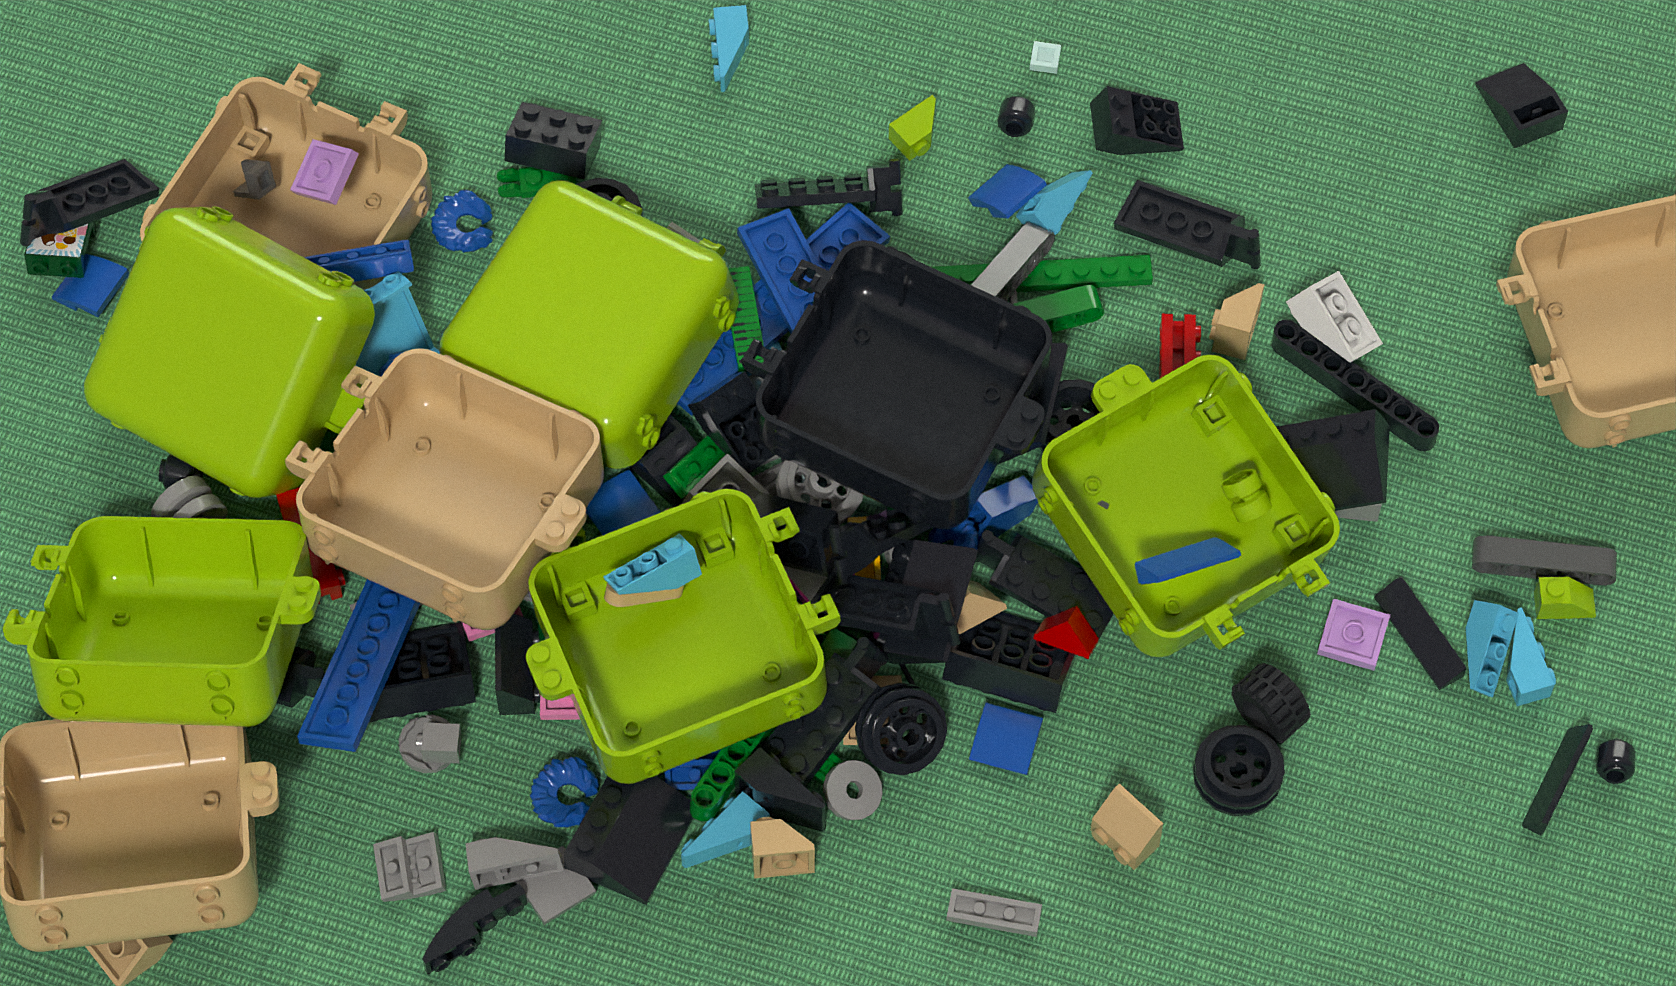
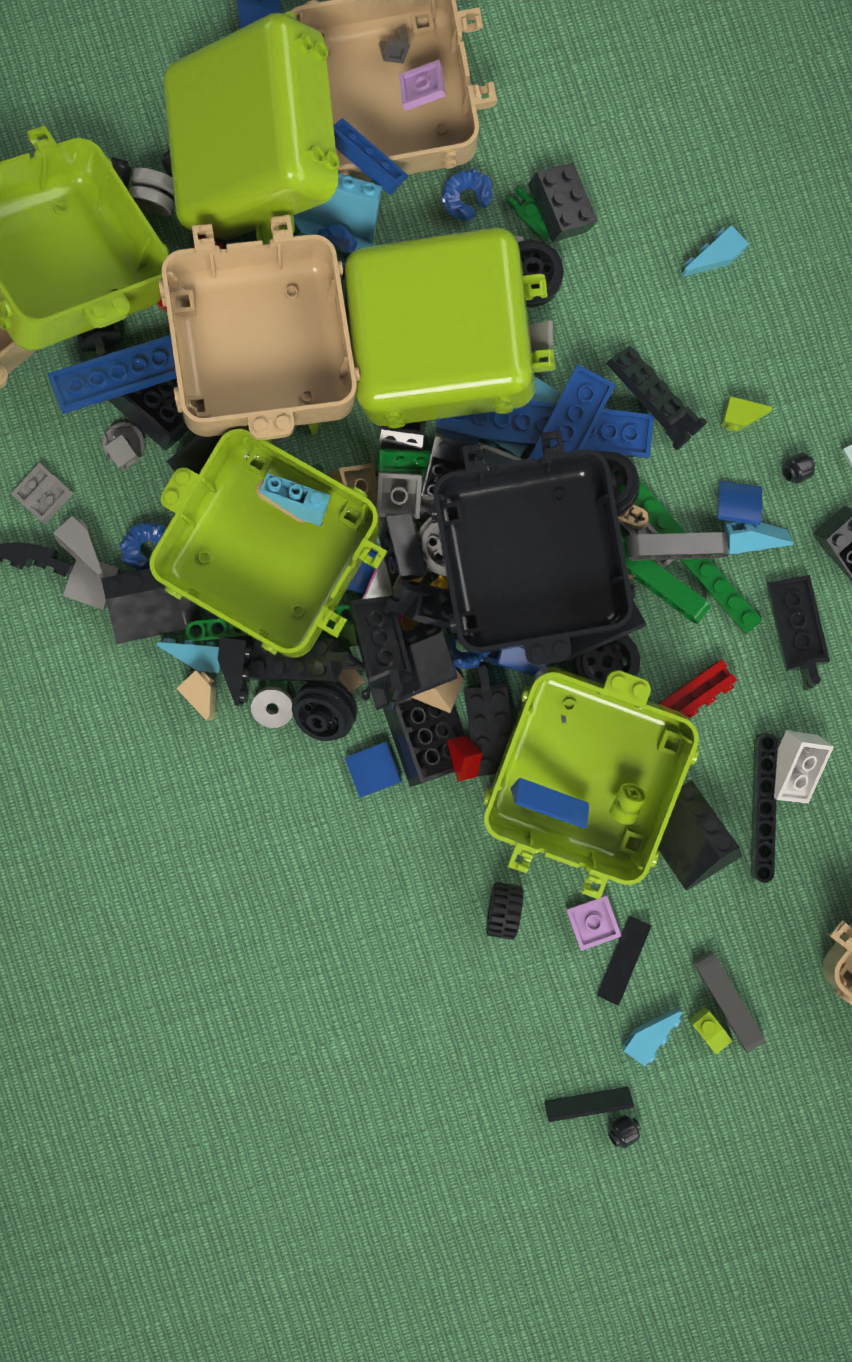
camera: 55 degrees right, 25 degrees up
(620, 503) = (352, 437): blue slope -> none
(746, 323) = (516, 420): green tile -> none
(994, 912) = (260, 841): light grey plate -> none
(1126, 828) = (364, 881): tan slope -> none
(1232, 794) = (436, 940): black wheel -> none
(1236, 322) = (751, 709): tan slope -> none
(1488, 640) = (648, 1005): medium azure slope -> none

